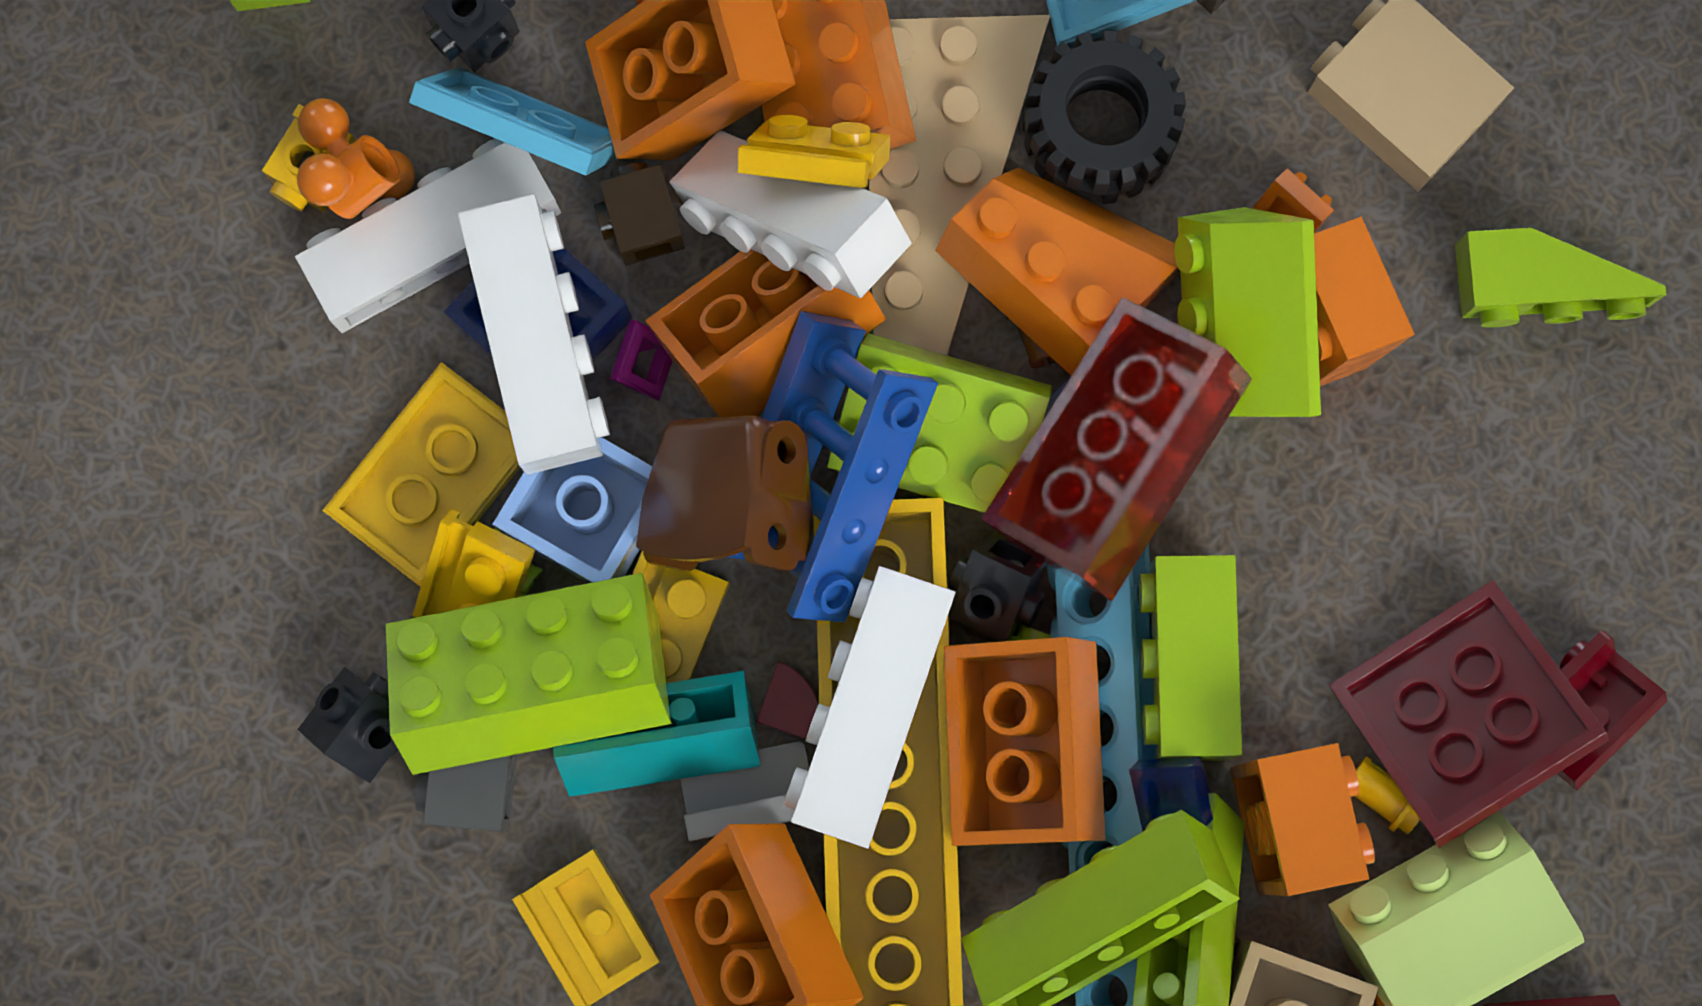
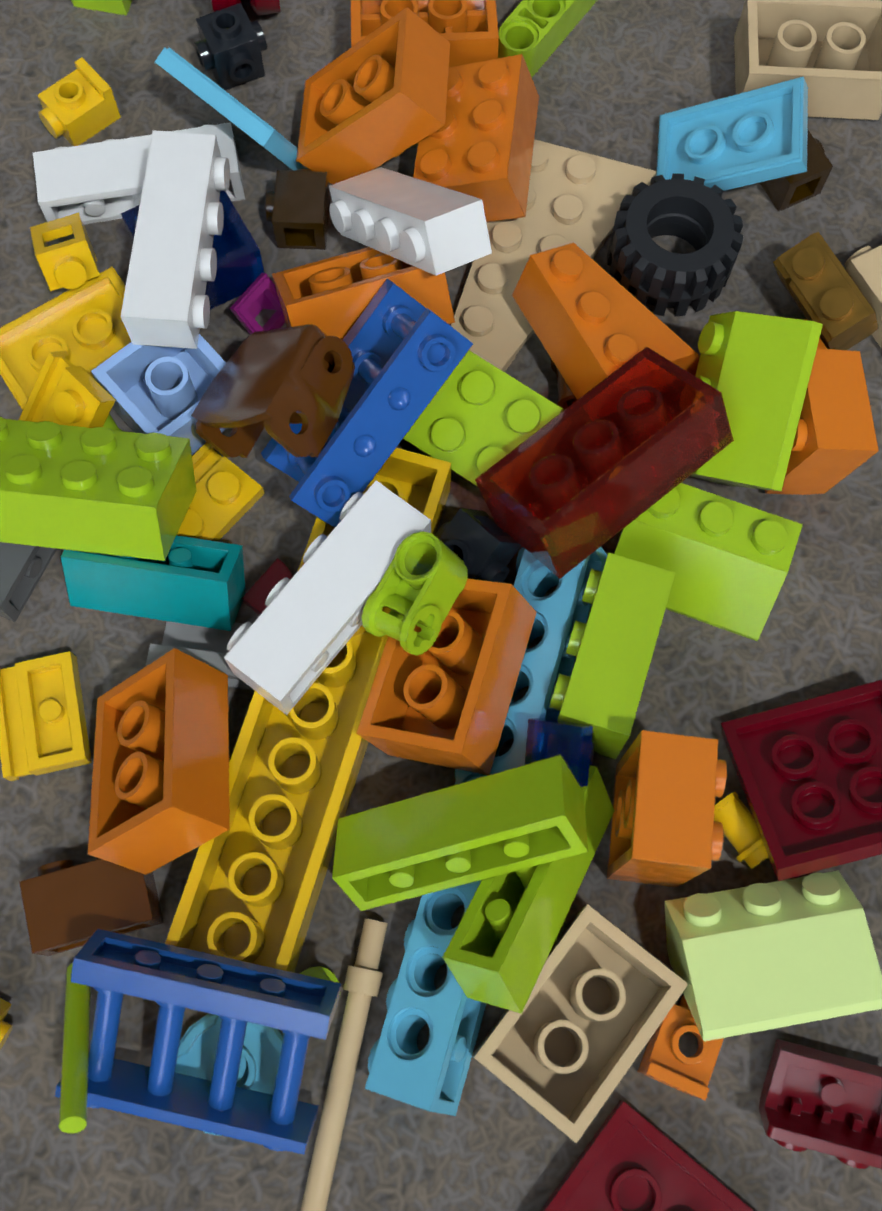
camera: 15 degrees right, 10 degrees down
(350, 174) = (93, 98): orange piece -> none
(397, 384) = (68, 262): none -> yellow brick
(802, 152) = (427, 165): yellow plate -> none
(966, 685) = (416, 593): none -> lime piece
(1267, 502) = (723, 555): none -> lime slope
(1299, 125) = (826, 293): none -> pearl gold brick

